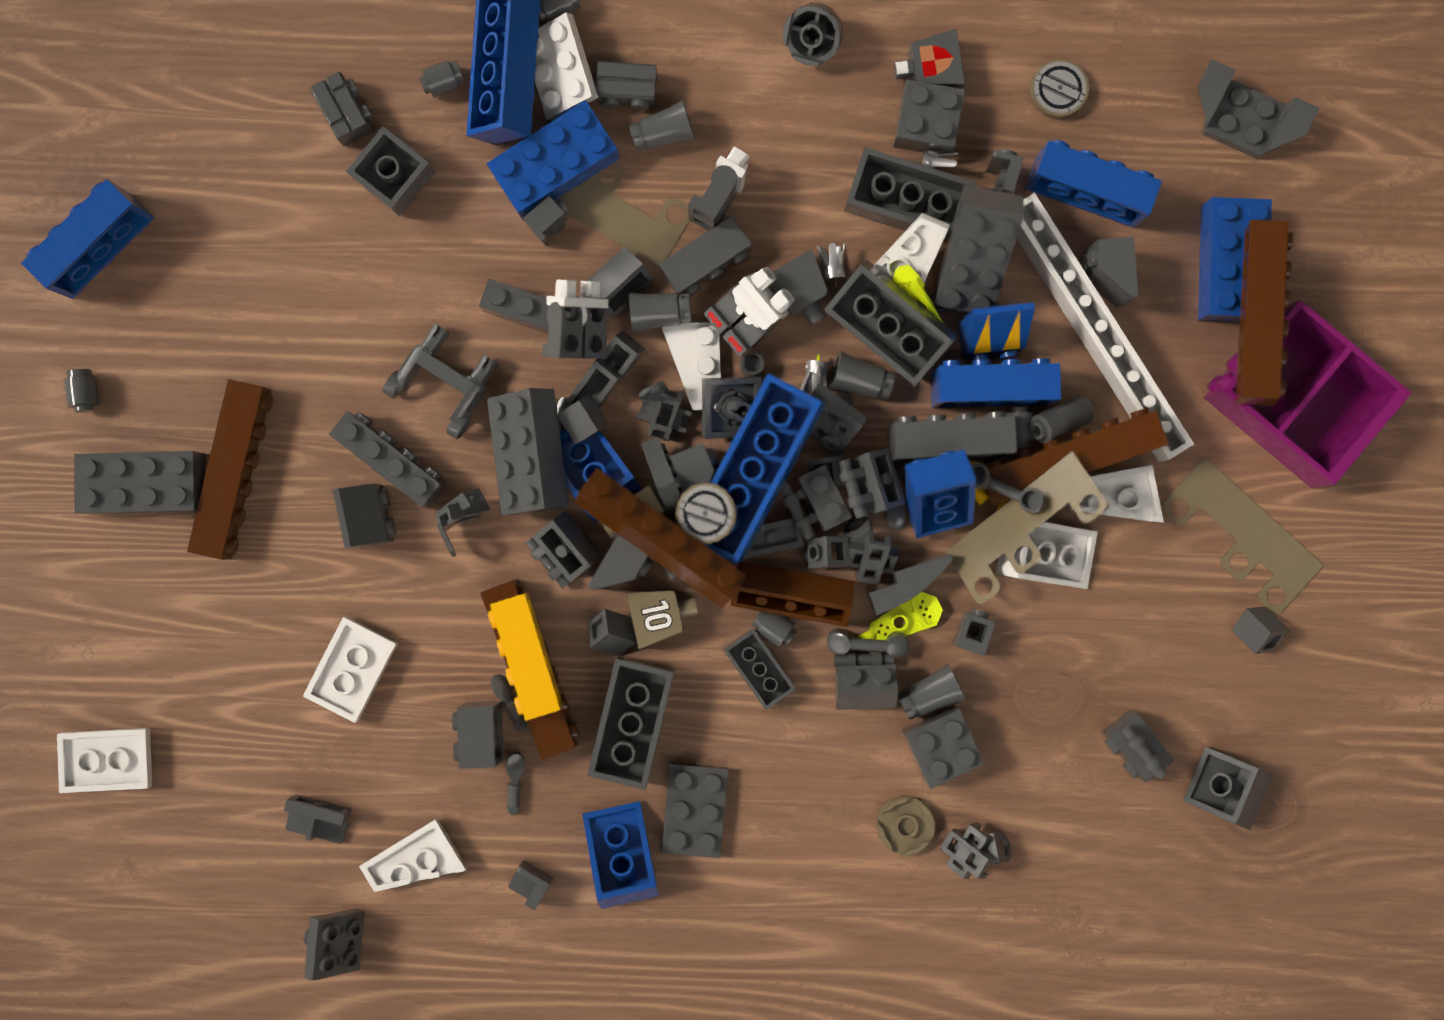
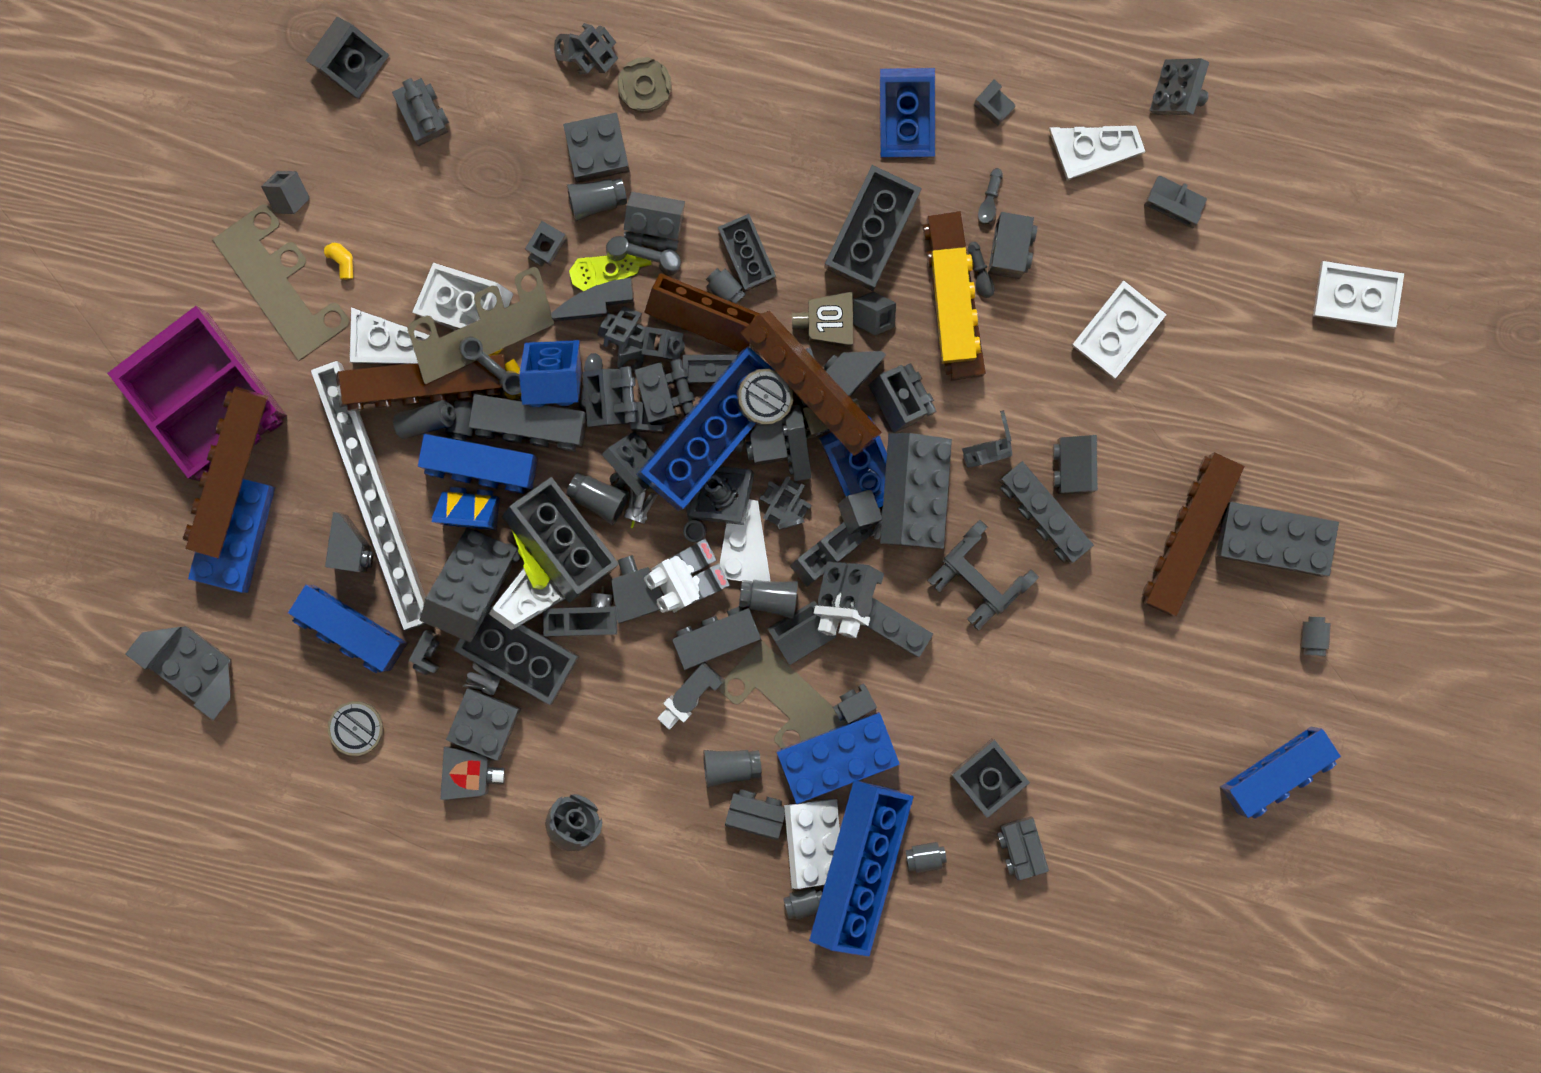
camera: 170 degrees left, 0 degrees up
(694, 810) = (832, 138): dark grey plate -> none
(851, 241) = (580, 621): none -> dark grey slope
(1184, 574) = (342, 257): none -> yellow arm

